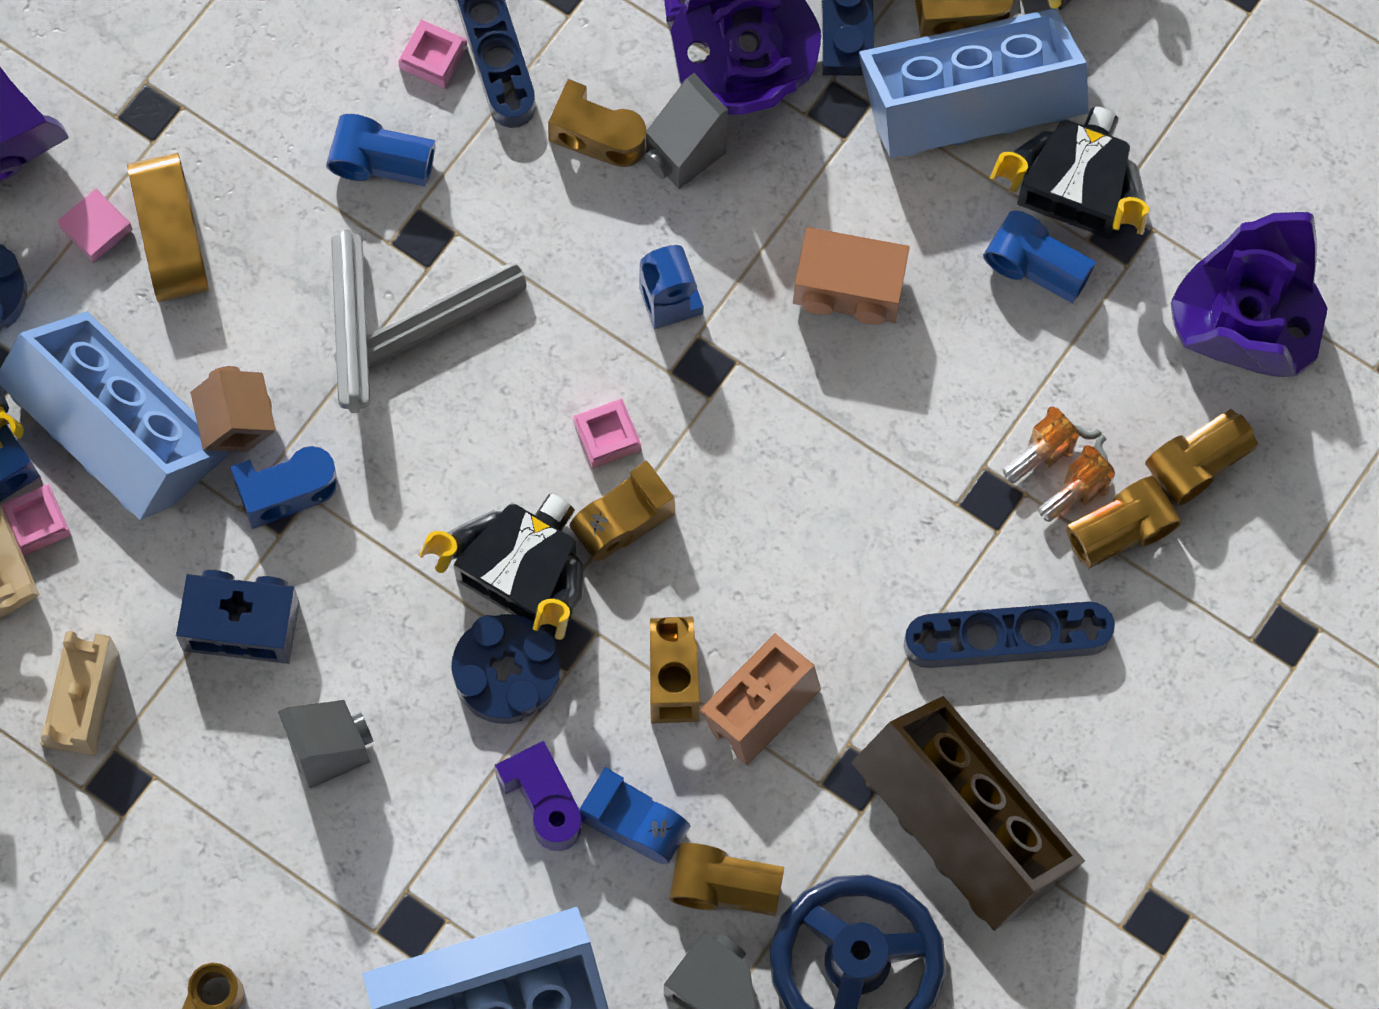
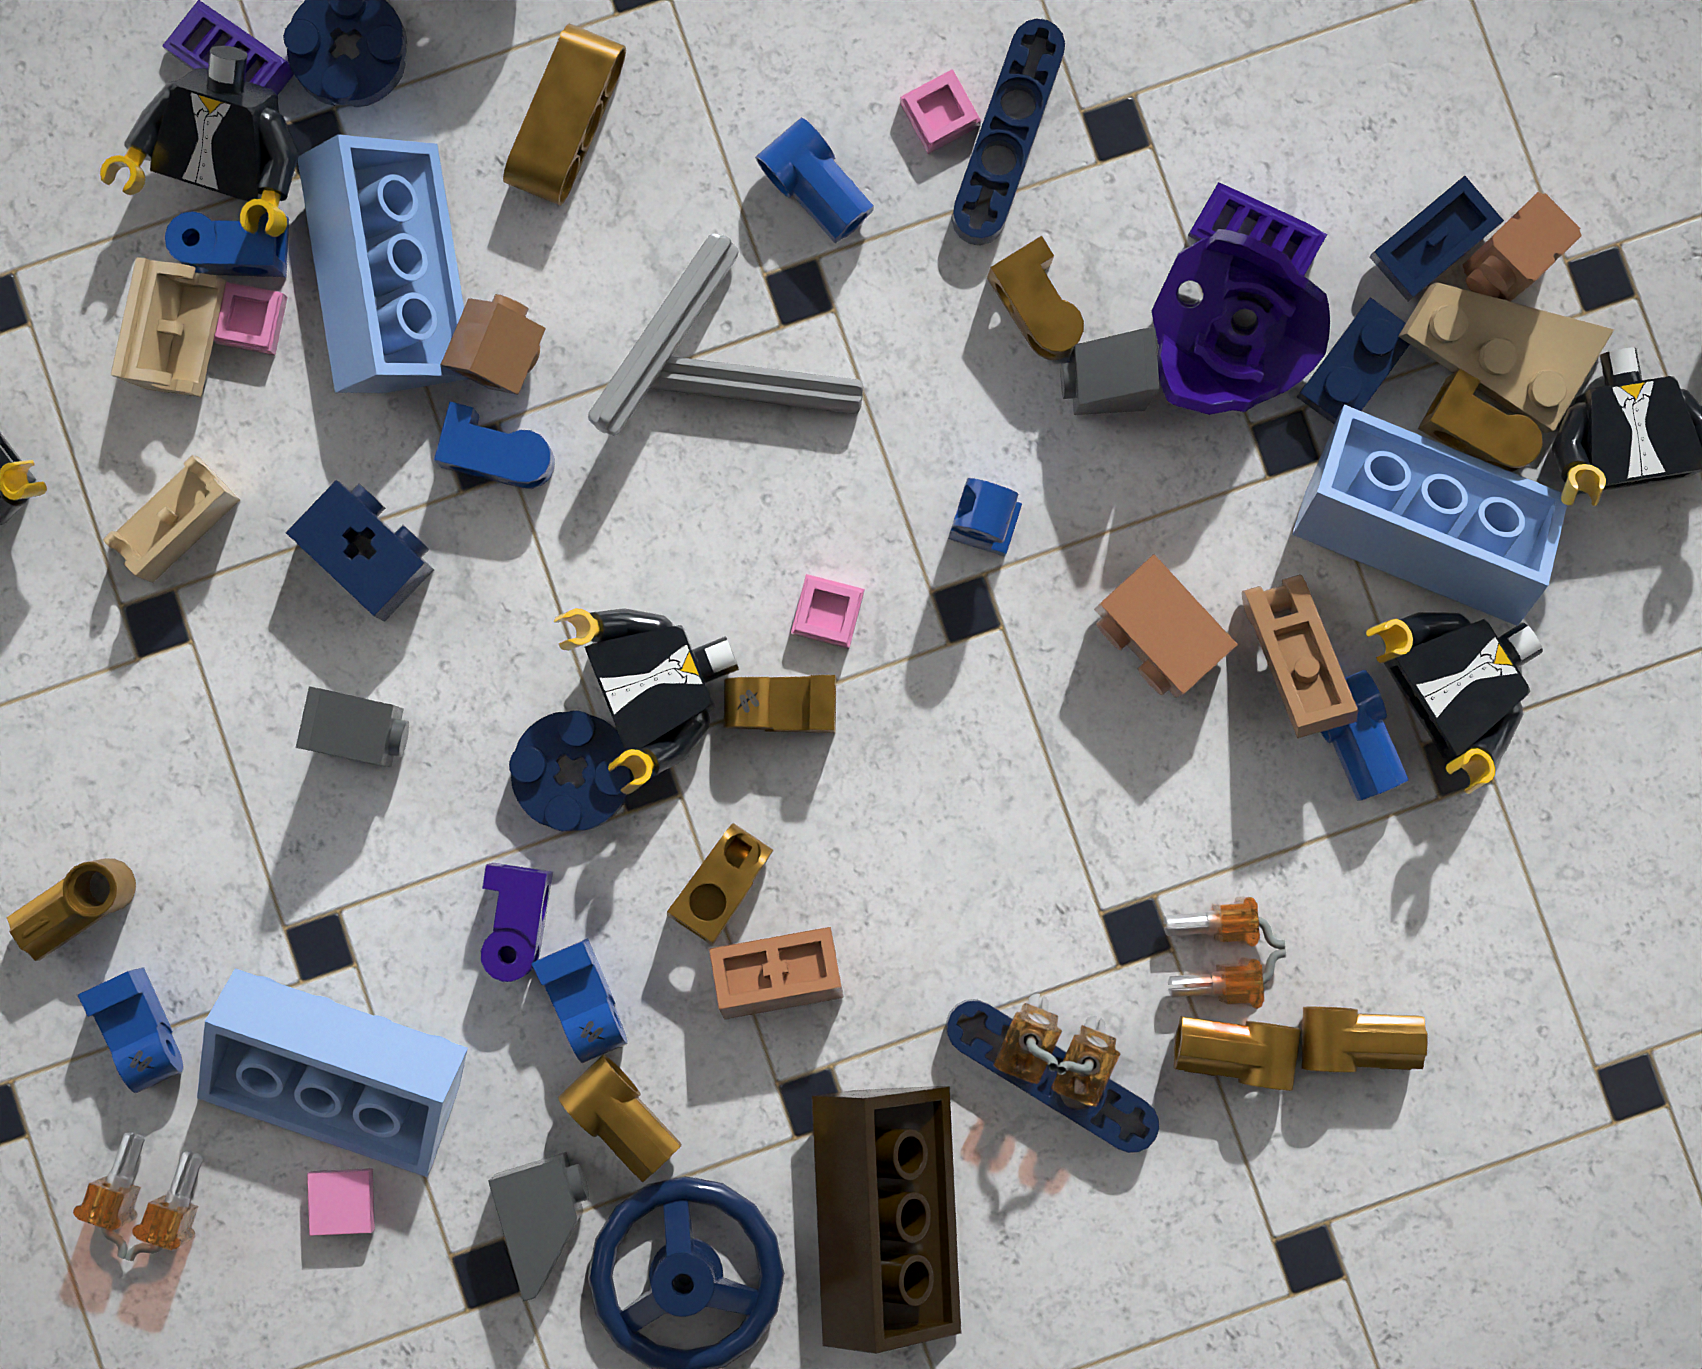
camera: 35 degrees right, 15 degrees up
(94, 225) = (501, 62): bright pink tile -> none
(958, 229) = (1300, 657): none -> medium nougat plate
(979, 598) = (1037, 1032): none -> clear orange piece
(1259, 273) = (1560, 925): dark purple piece -> none

